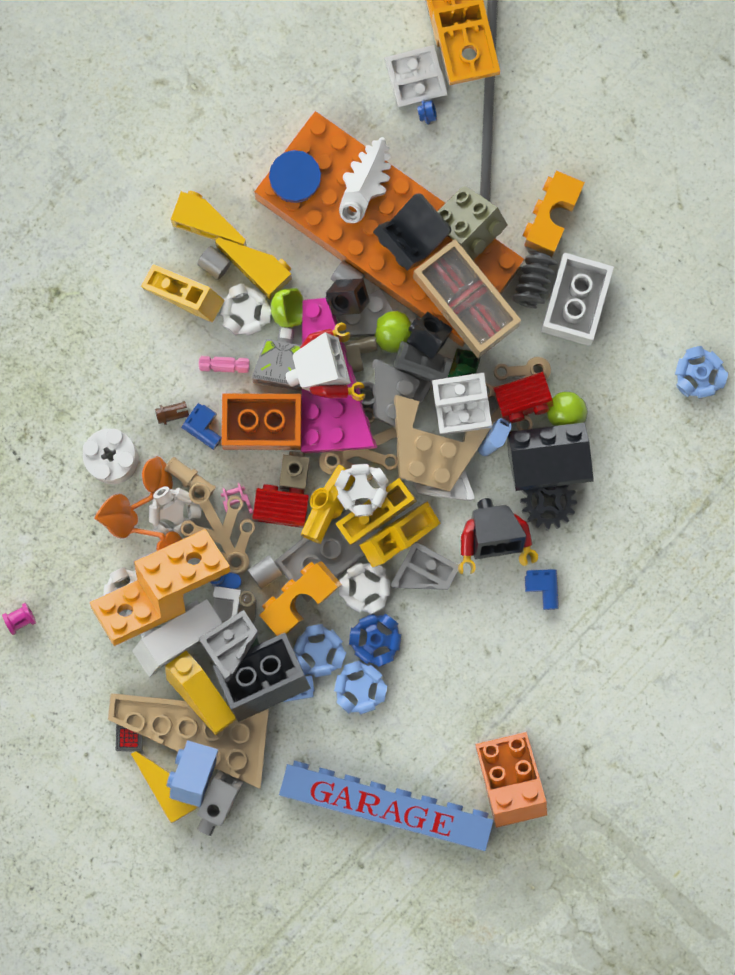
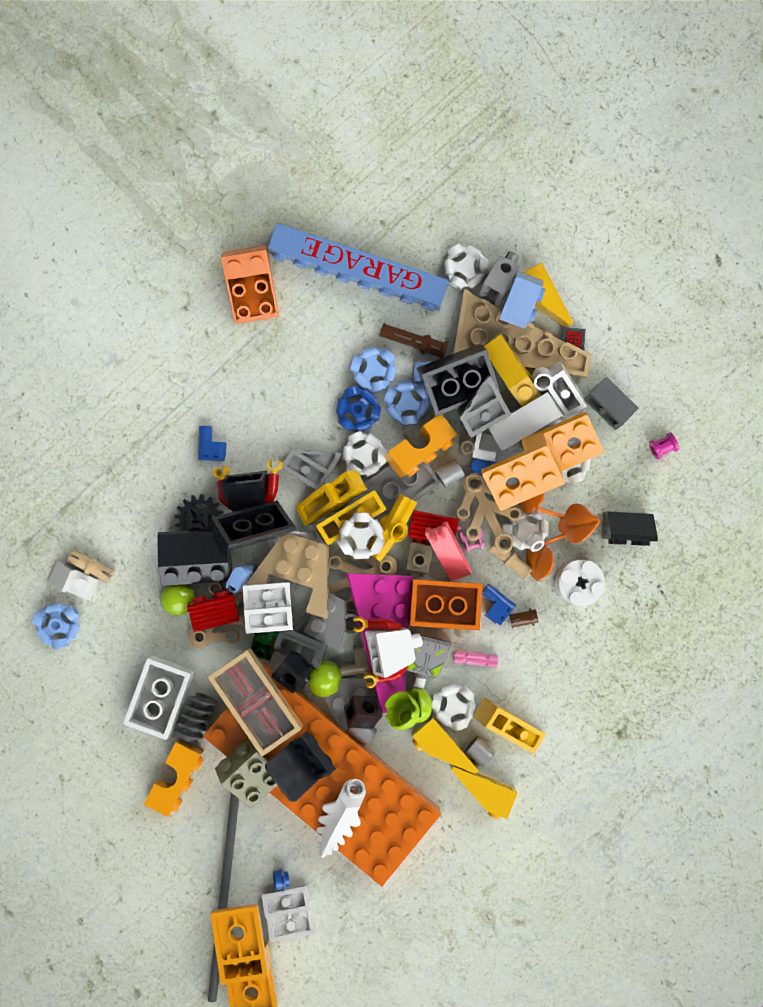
camera: 170 degrees left, 5 degrees up
(56, 520) = (633, 527): none -> black slope
(82, 664) = (611, 403): none -> dark grey hinge
(142, 676) = (561, 388): none -> white hinge
(259, 816) = (465, 267): none -> white piece
(261, 480) = (448, 551): none -> coral hinge
(295, 176) = (403, 825): blue tile -> none
(302, 721) = (388, 332): none -> reddish brown pin
(304, 300) = (402, 710): none -> lime hair
(486, 491) = (251, 526): none -> black slope
(668, 441) = (90, 566): none -> tan pin
(687, 423) = (73, 580): none -> white slope

